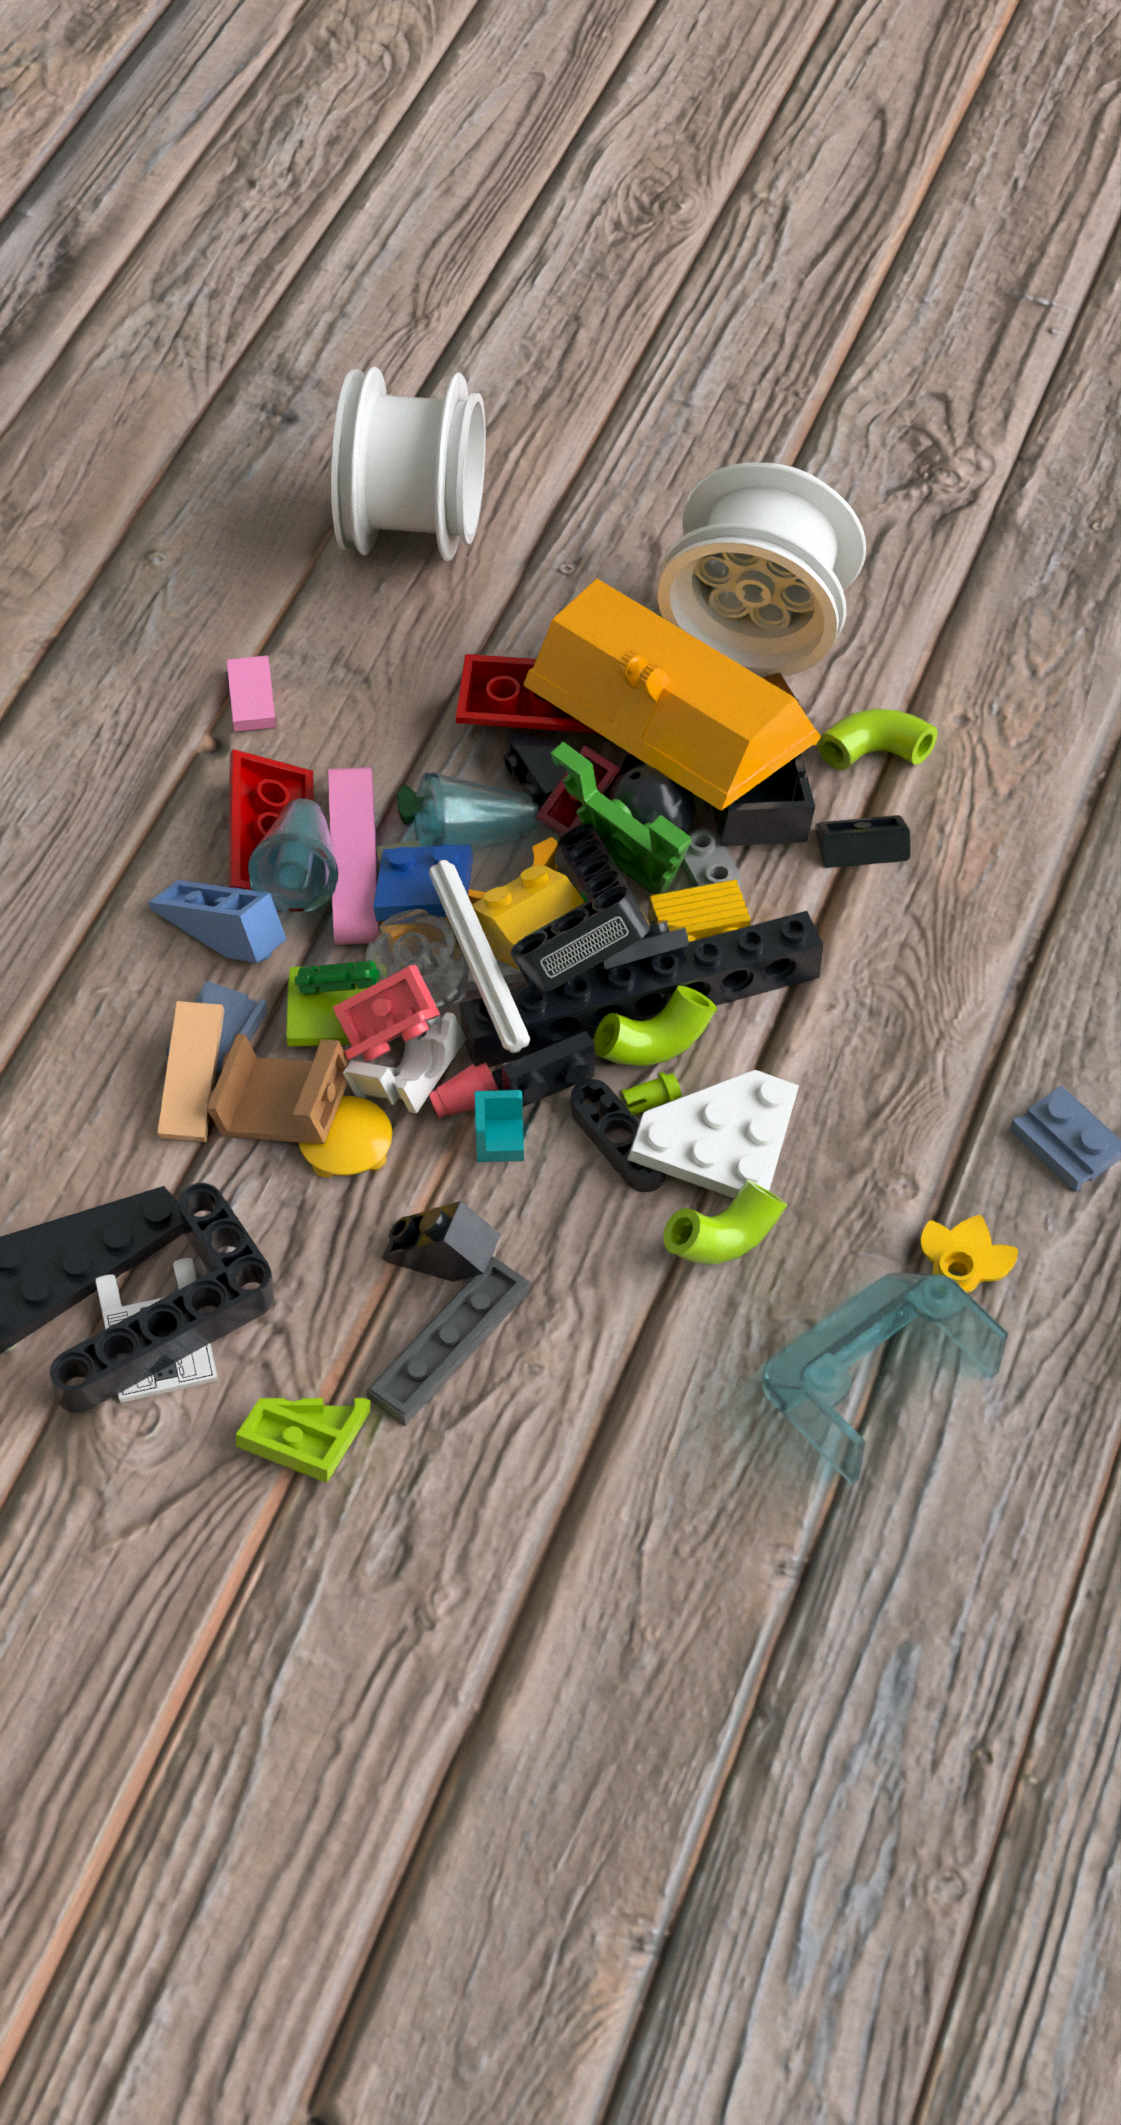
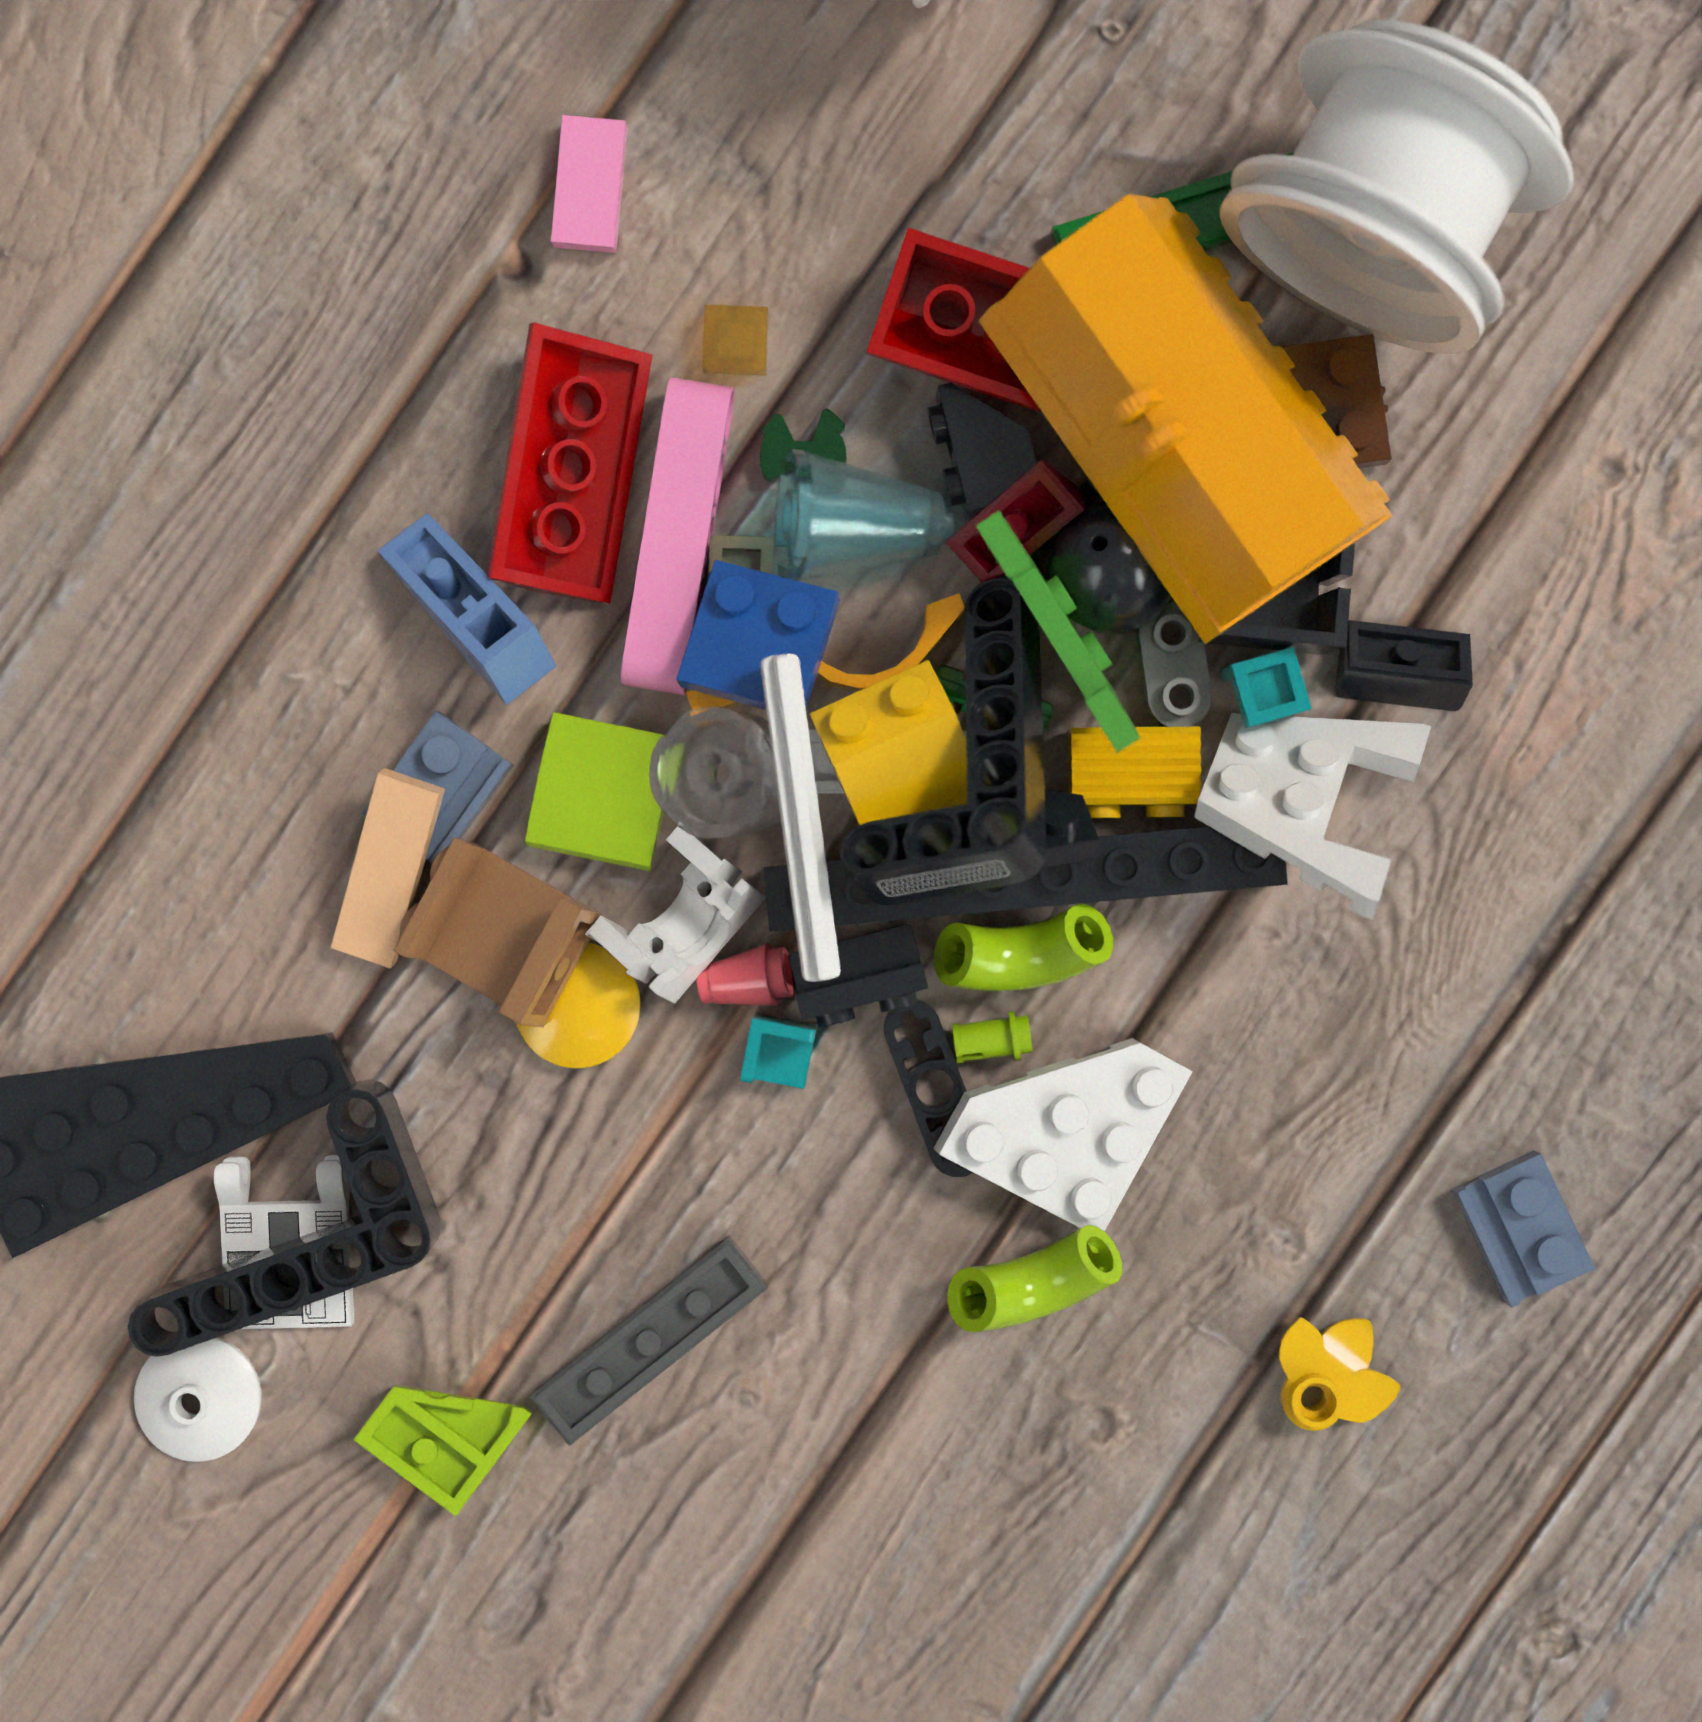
camera: 10 degrees right, 35 degrees up
(105, 1474) = (227, 1396): none -> white dish
(296, 859) = (589, 546): clear light blue cone -> none
(337, 977) = (605, 784): green axle -> none
(367, 750) = (735, 340): none -> clear yellow tile
(386, 1011) = (657, 875): coral bracket -> none
(443, 1242) = (665, 1214): black slope -> none
(774, 850) = (1268, 687): none -> teal panel
(813, 1373) = (1150, 1476): clear light blue windscreen -> none
(821, 893) = (1280, 784): none -> white wing
(877, 731) = (1477, 482): lime cylinder -> none

